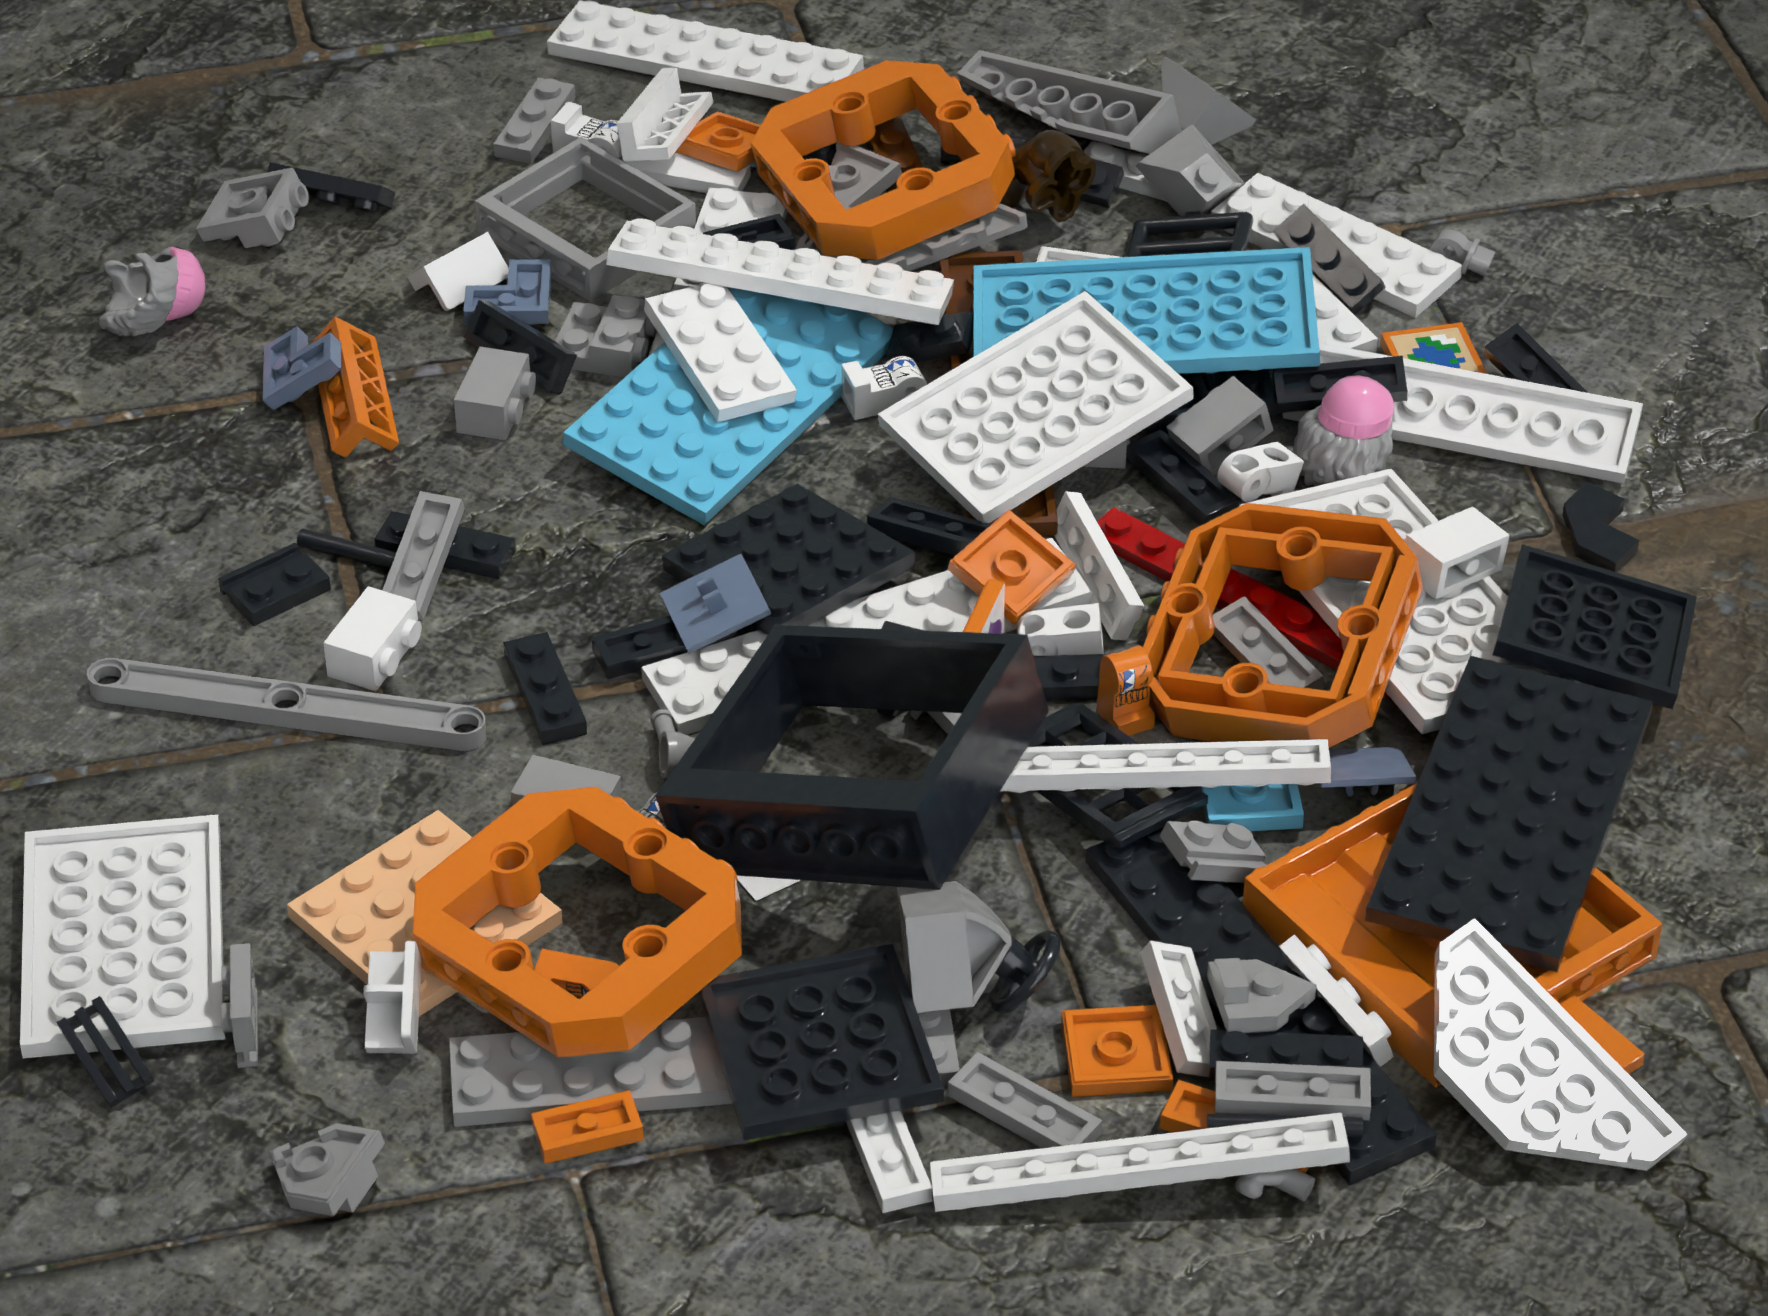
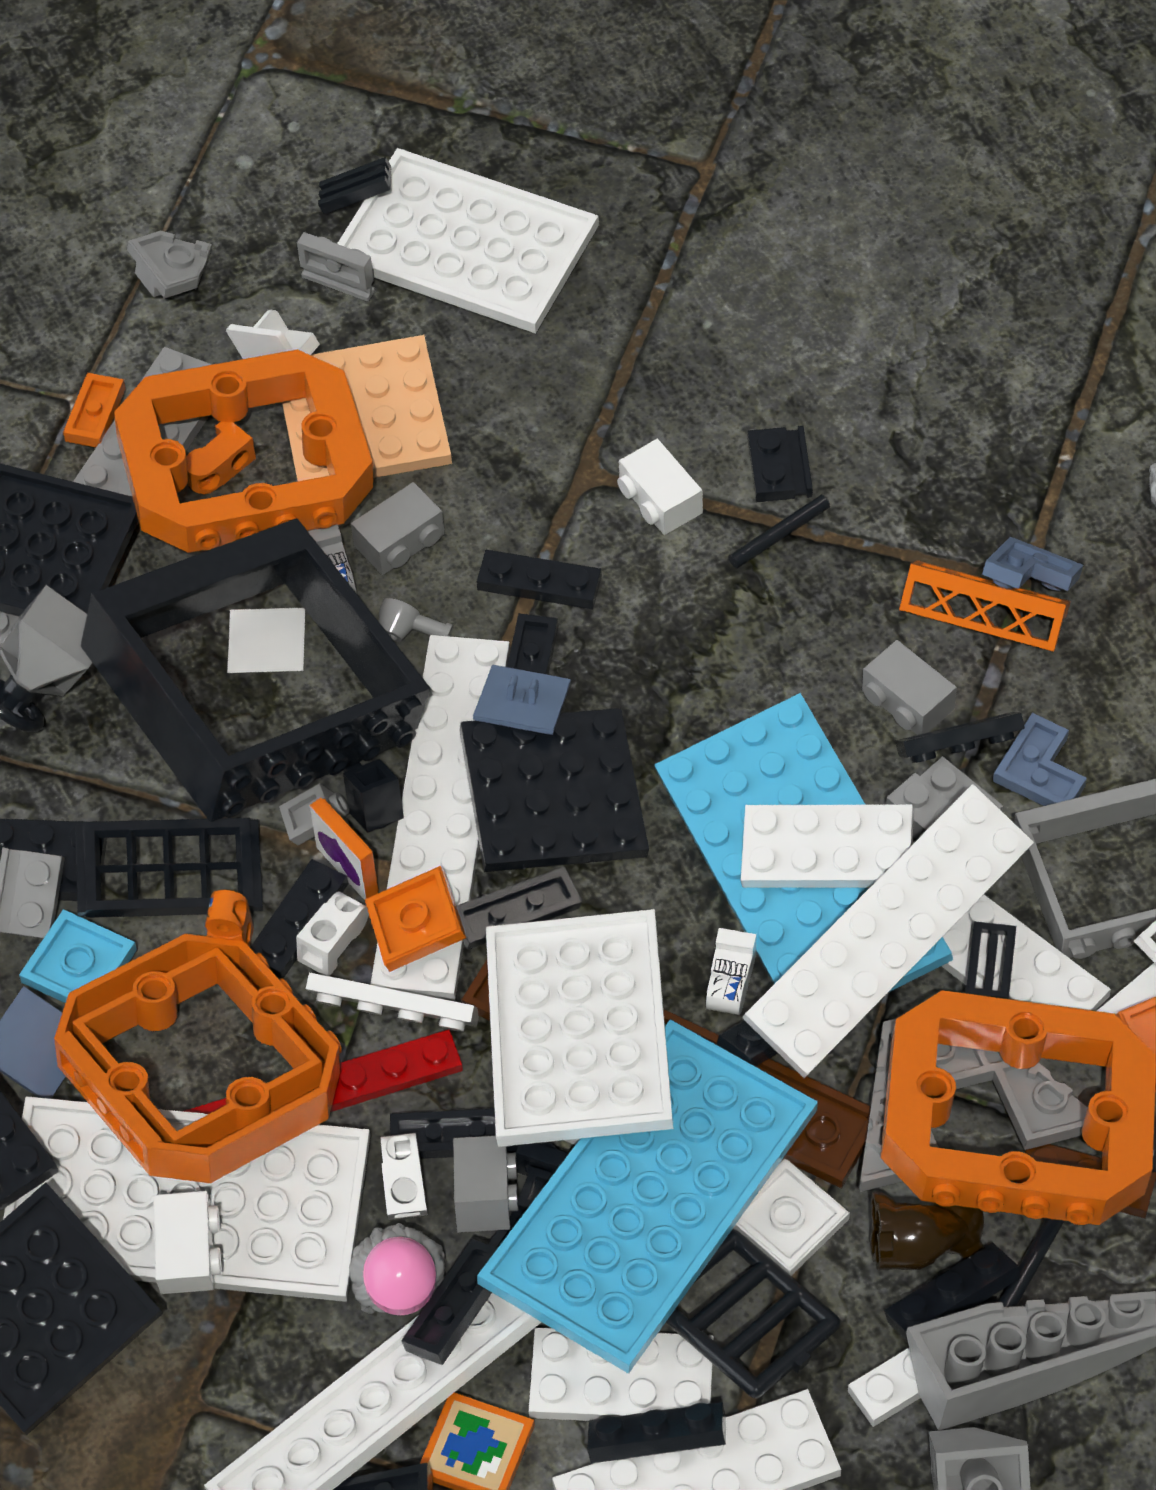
camera: 125 degrees right, 15 degrees up
(316, 709) = (616, 434): light grey beam -> none
(424, 548) = (724, 546): light grey plate -> none
(468, 265) = (1103, 742): white panel -> none
(470, 551) = (749, 587): black plate -> none
(1171, 765) = (107, 893): white plate -> none
(1190, 173) = (854, 1388): light grey slope -> none
(1257, 641) = (207, 1062): light grey plate -> none
(1588, 519) = (161, 1414): black tile -> none

